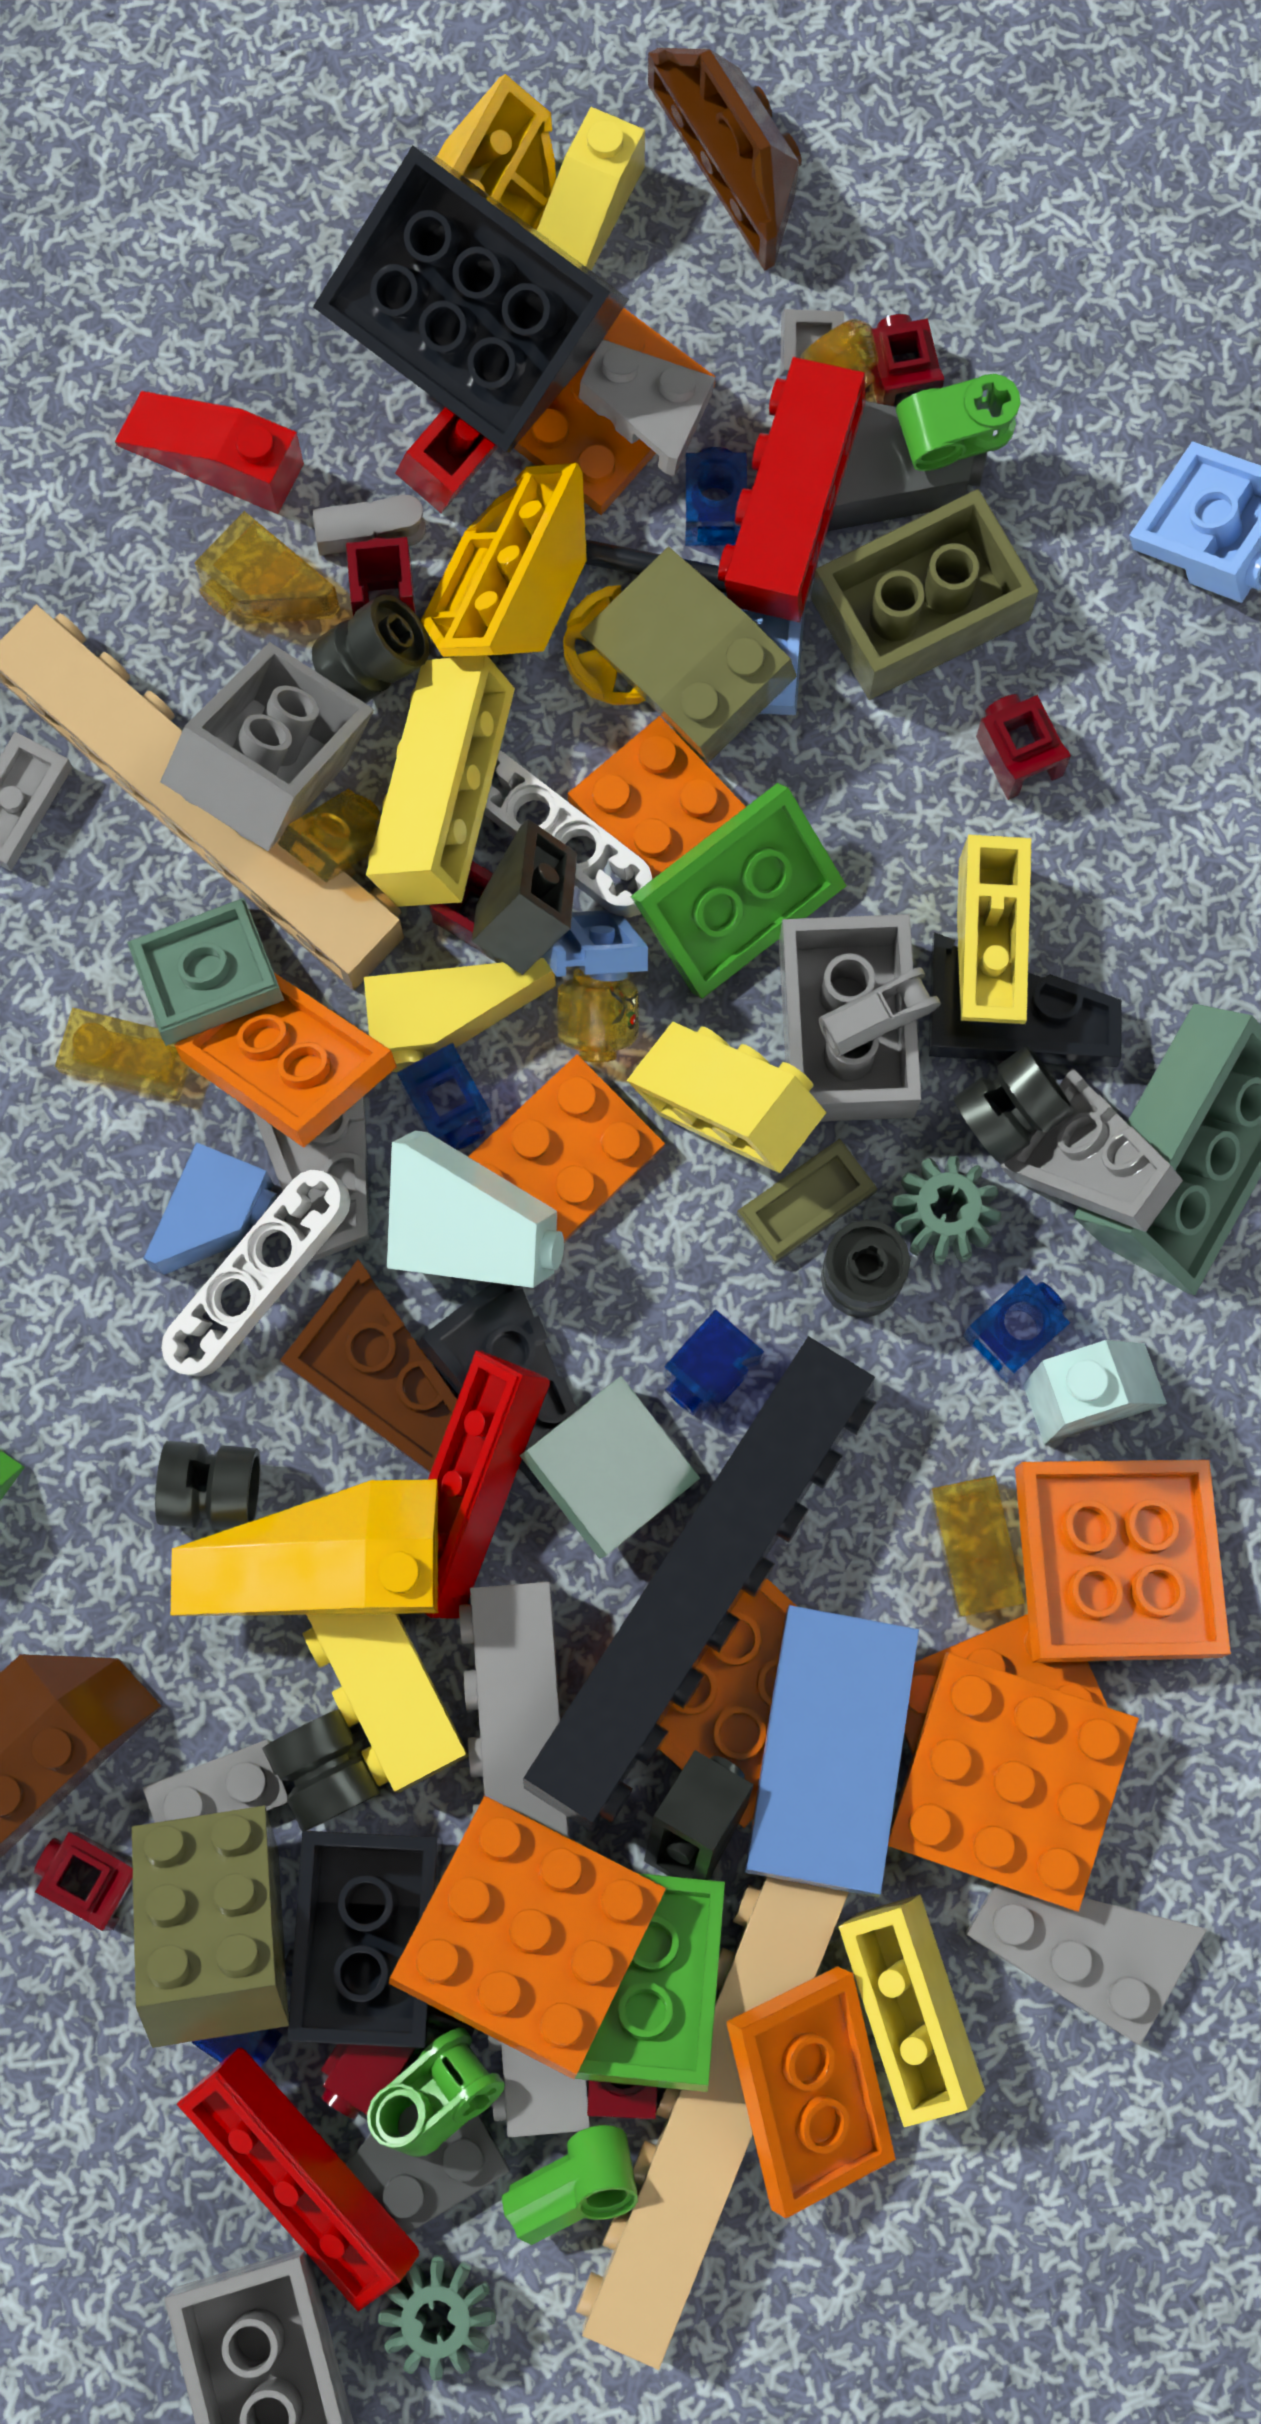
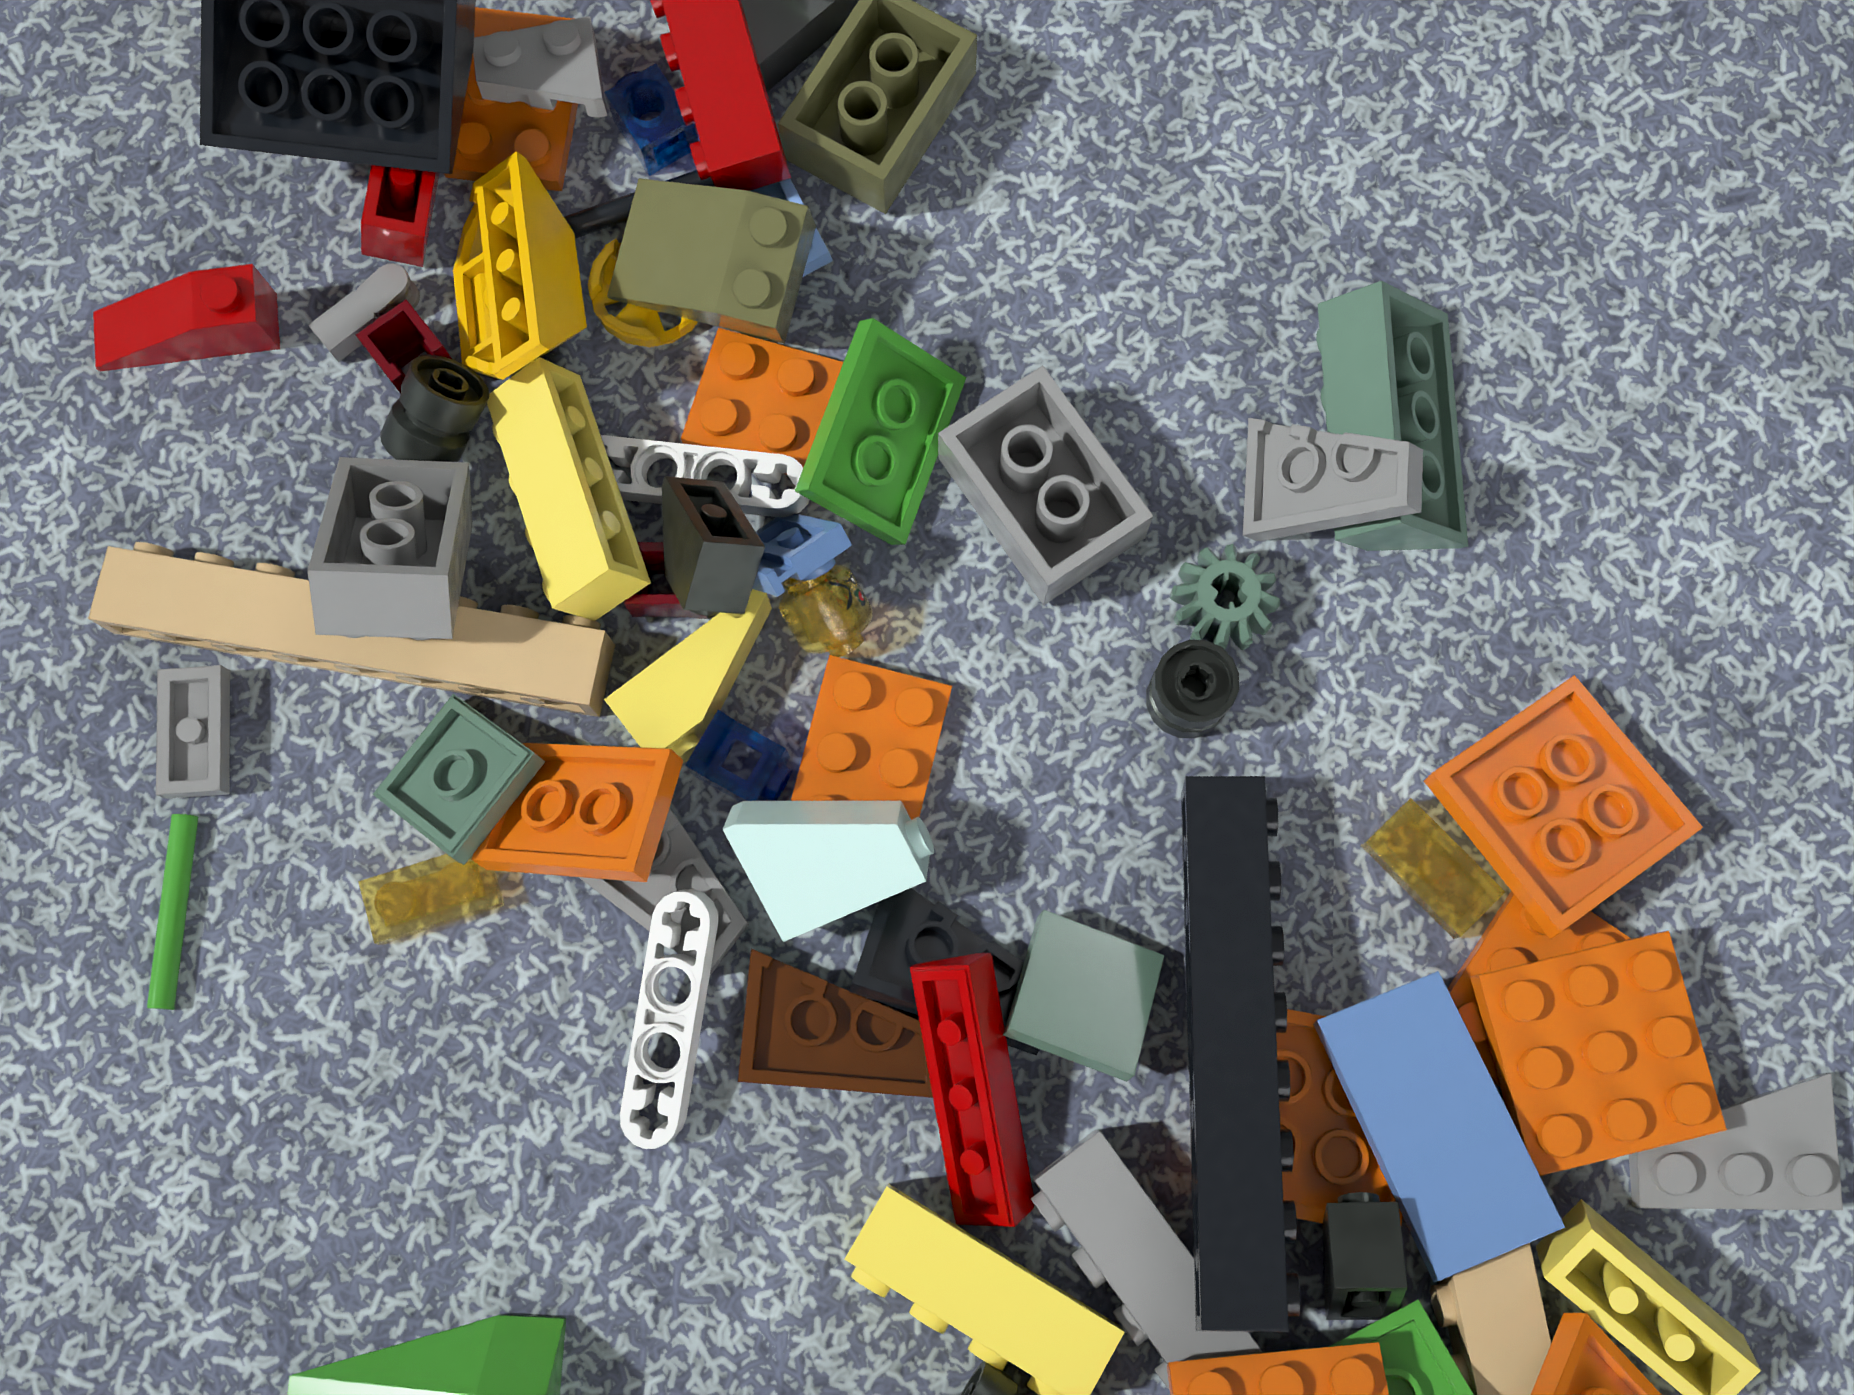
camera: 30 degrees left, 0 degrees up
(209, 1209) = (592, 985): medium blue slope -> none
(231, 1485) = (766, 1225): pearl dark grey wheel -> none
(262, 578) = (299, 408): clear yellow slope -> none
(332, 1555) = (896, 1233): yellow wedge -> none
(333, 834) = (500, 591): clear yellow plate -> none
(710, 1365) = (1113, 852): clear blue window -> none
(728, 1095) = (988, 610): light yellow brick -> none
(807, 1201) = (1101, 662): olive tile -> none
(871, 1016) = (1070, 467): light grey bar -> none
(994, 928) = (1116, 336): light yellow slope -> none
(1000, 1348) = (1332, 683): clear blue brick -> none
(1012, 764) = (1026, 192): dark red window -> none
(1032, 1090) = (1237, 454): pearl dark grey wheel -> none
(1062, 1023) = (1172, 403): black wing -> none
(1092, 1388) = (1445, 680): light aqua slope -> none

